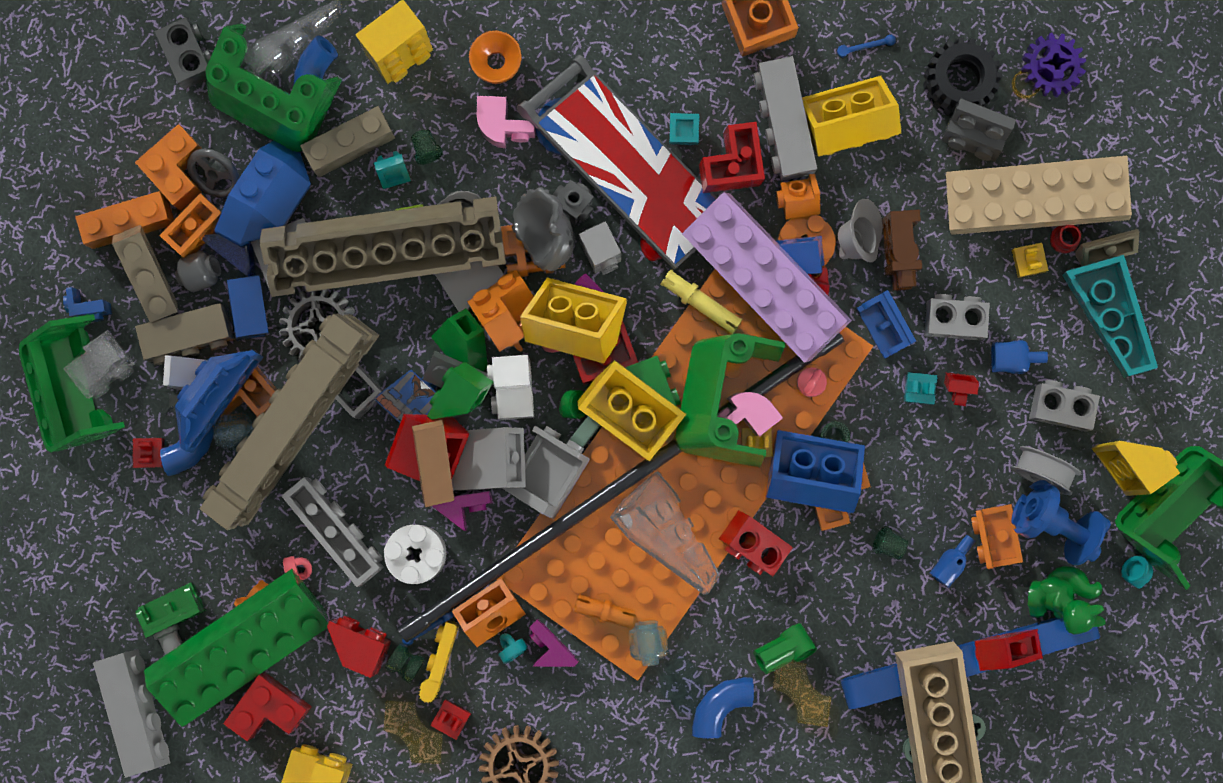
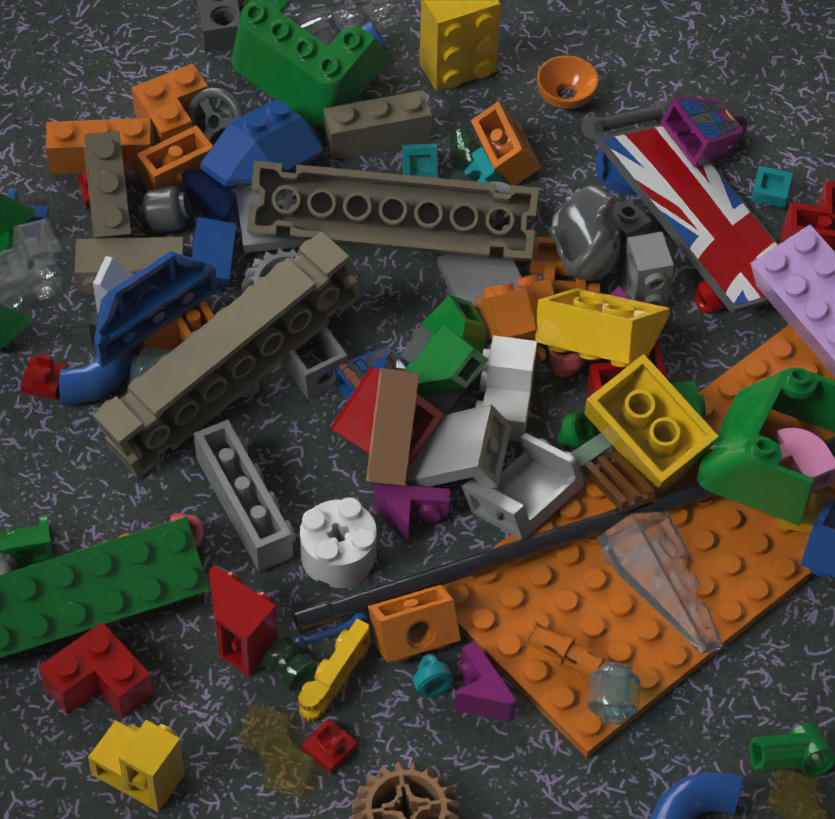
camera: 10 degrees right, 30 degrees down
(451, 165) = (483, 167): none -> teal tile
(458, 139) = (506, 144): none -> orange brick
(494, 124) = (556, 146): bright pink brick -> none
(601, 438) = (625, 479): none -> reddish brown tile
(618, 82) = (703, 129): none -> magenta torso
(706, 305) = (747, 342): light yellow pin -> none
(756, 542) = (783, 612): red brick -> none

